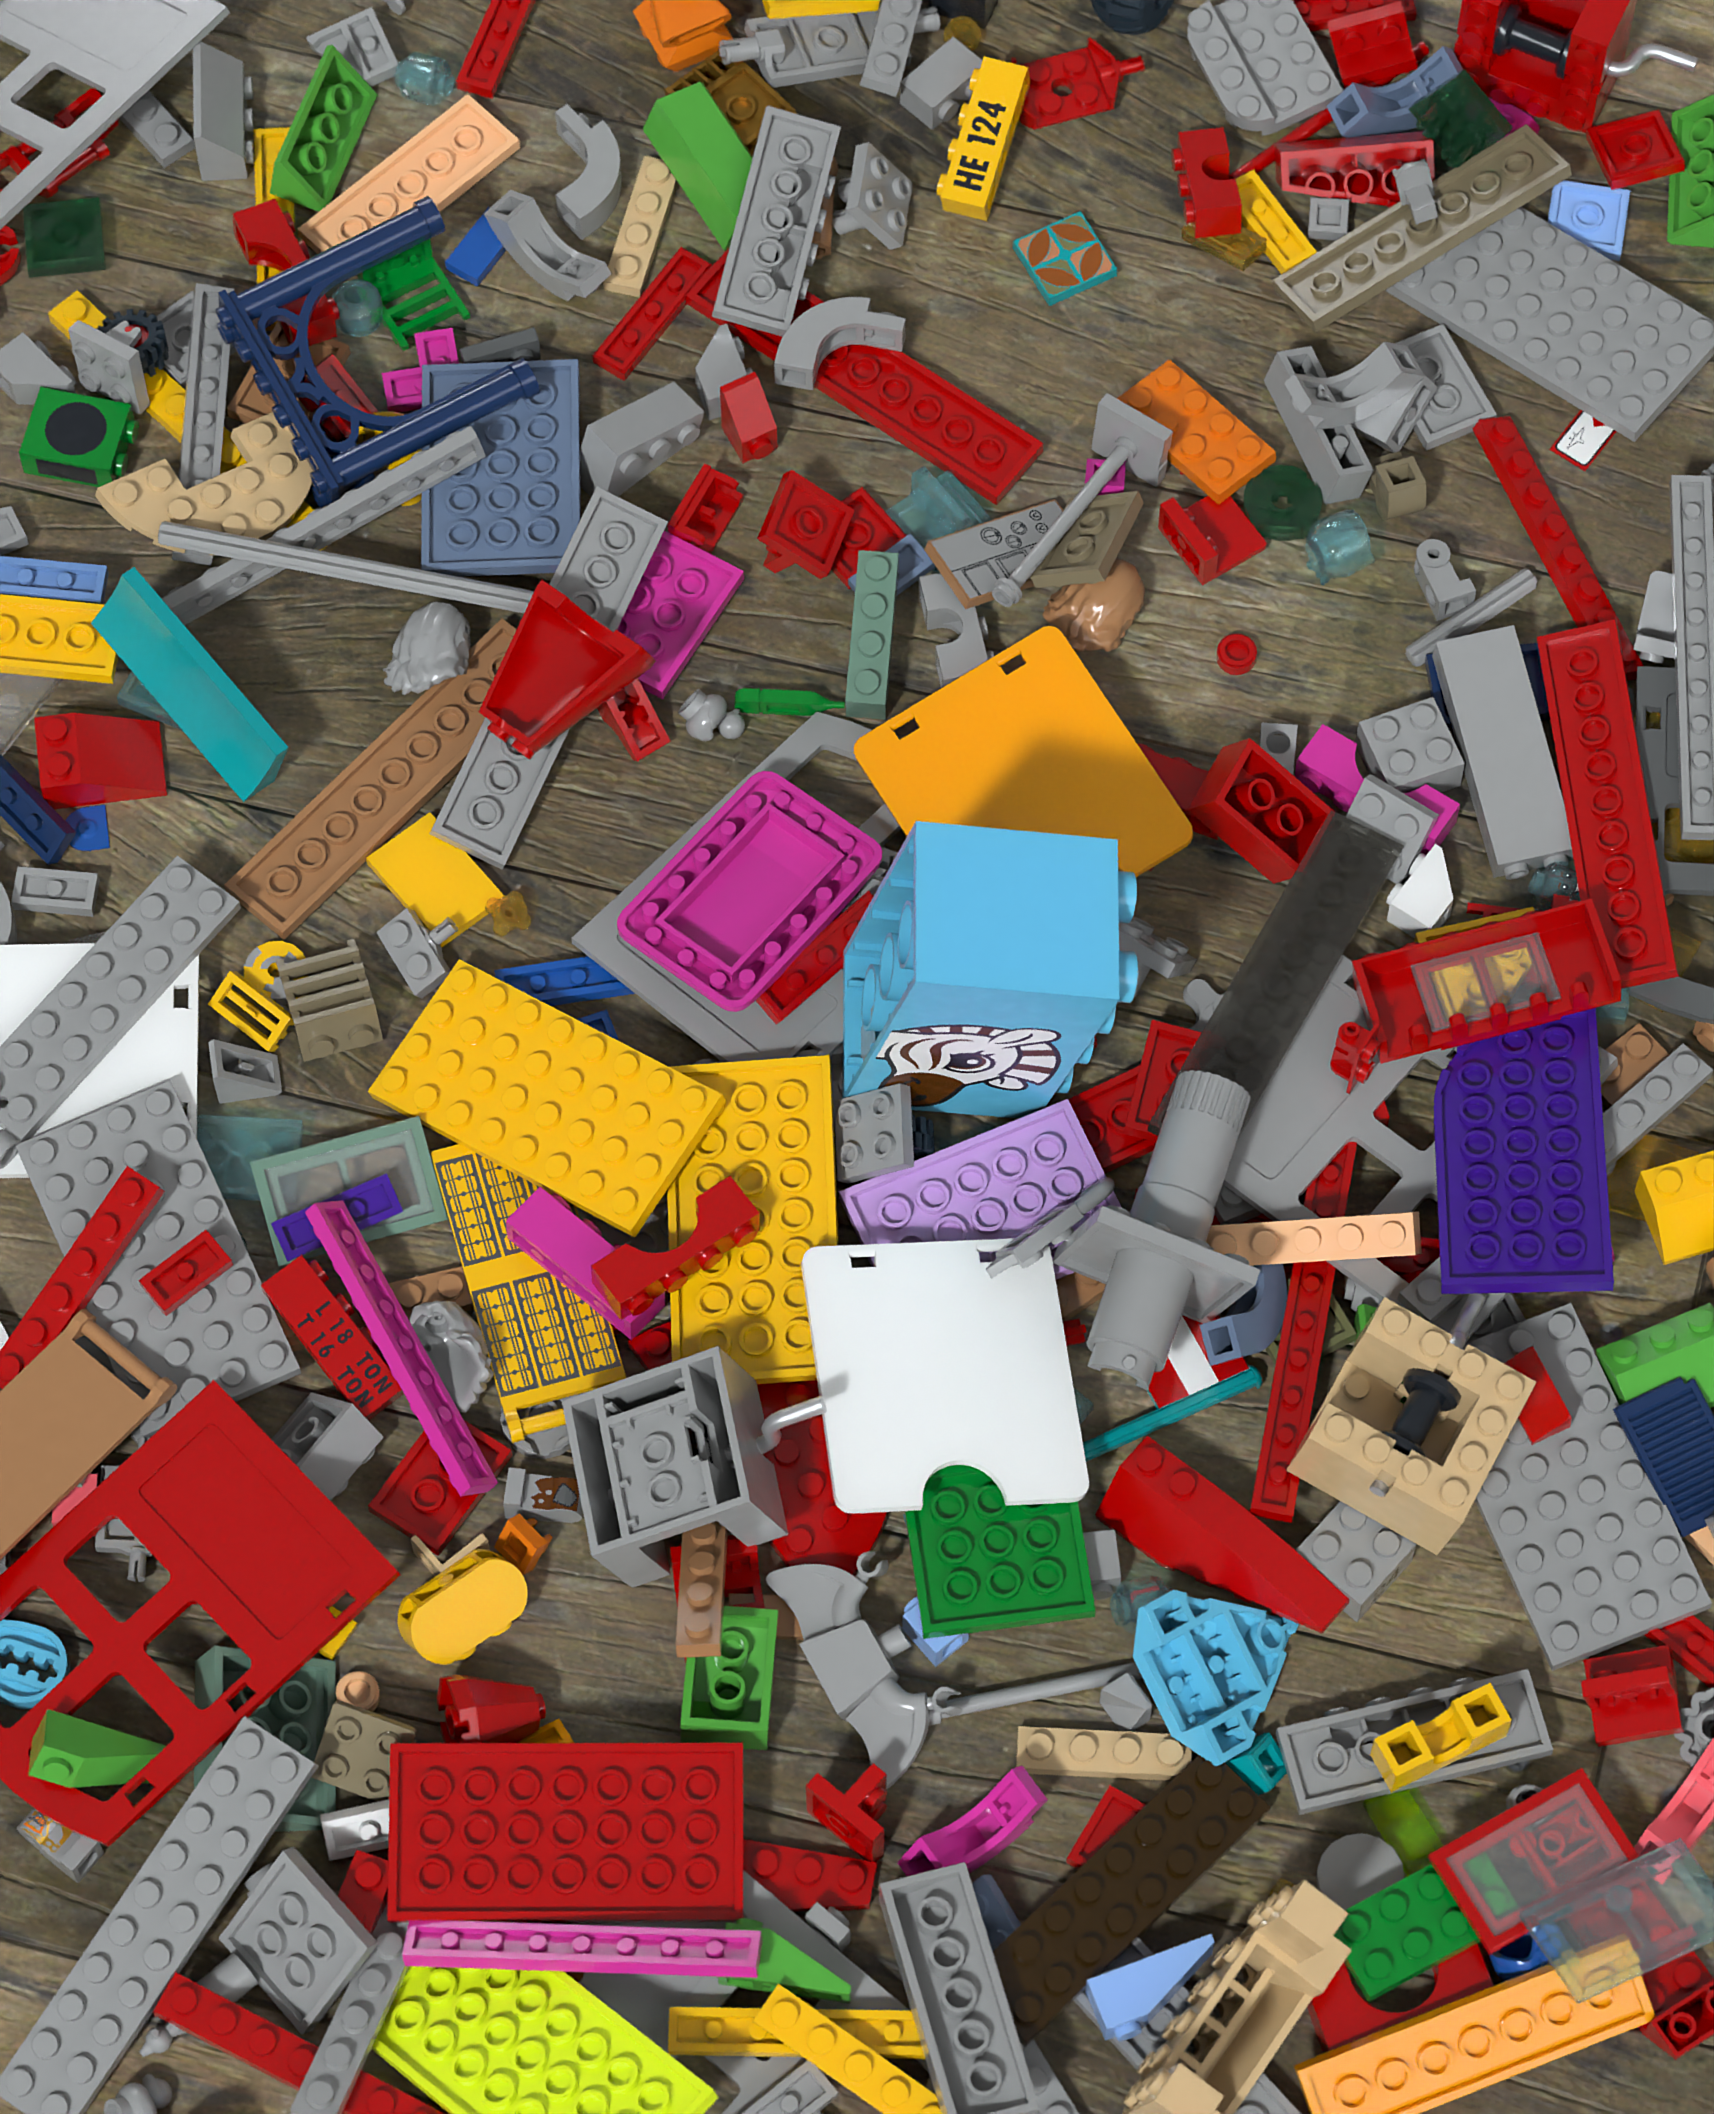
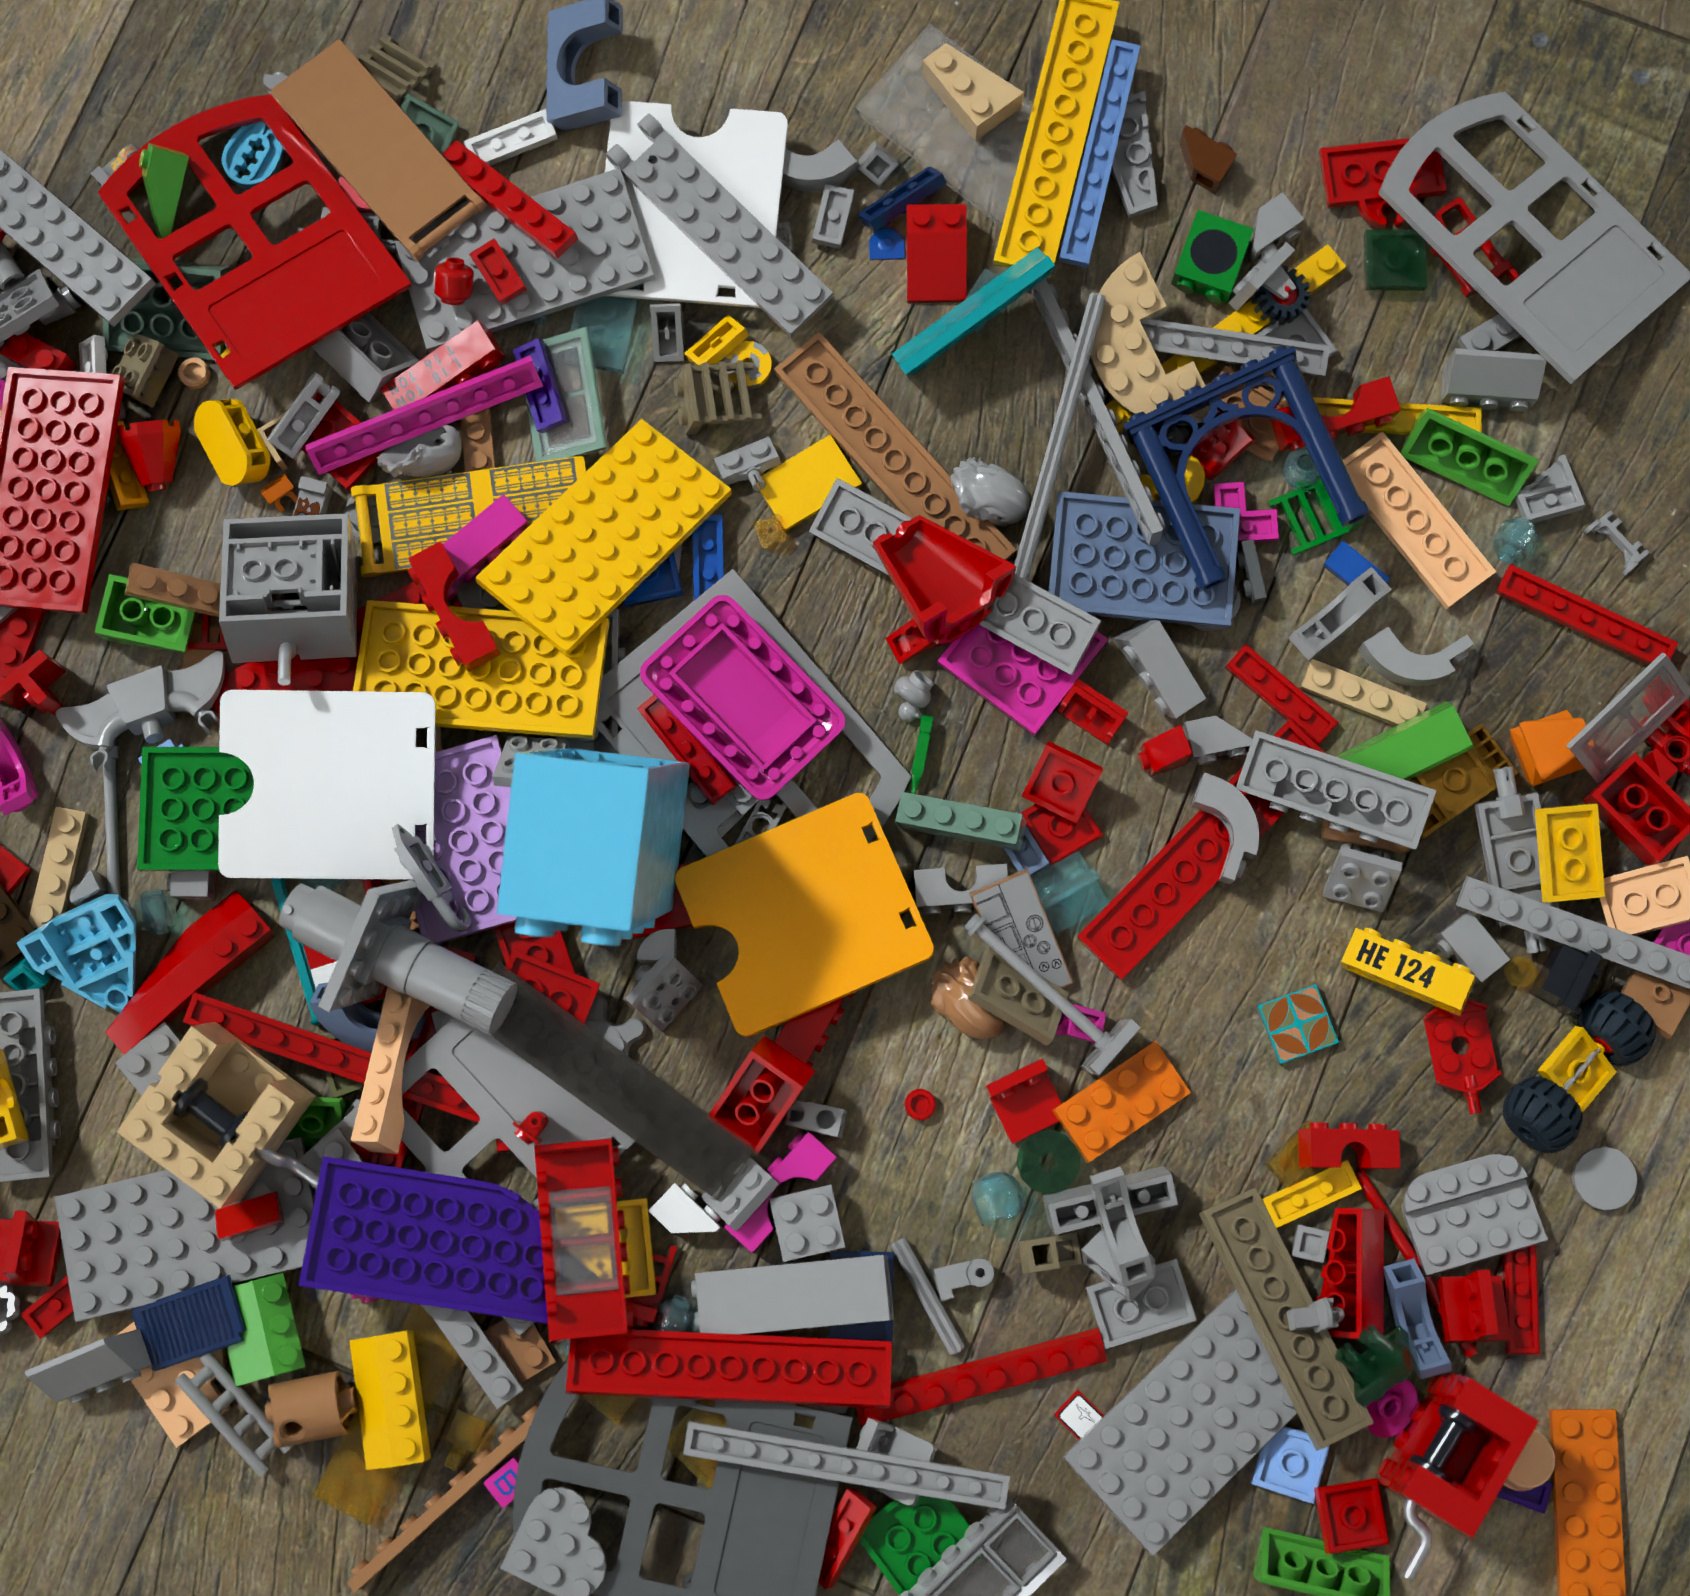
camera: 100 degrees right, 15 degrees up
(207, 1323) = (453, 281): none -> red head
(415, 1510) = (303, 416): none -> light grey plate

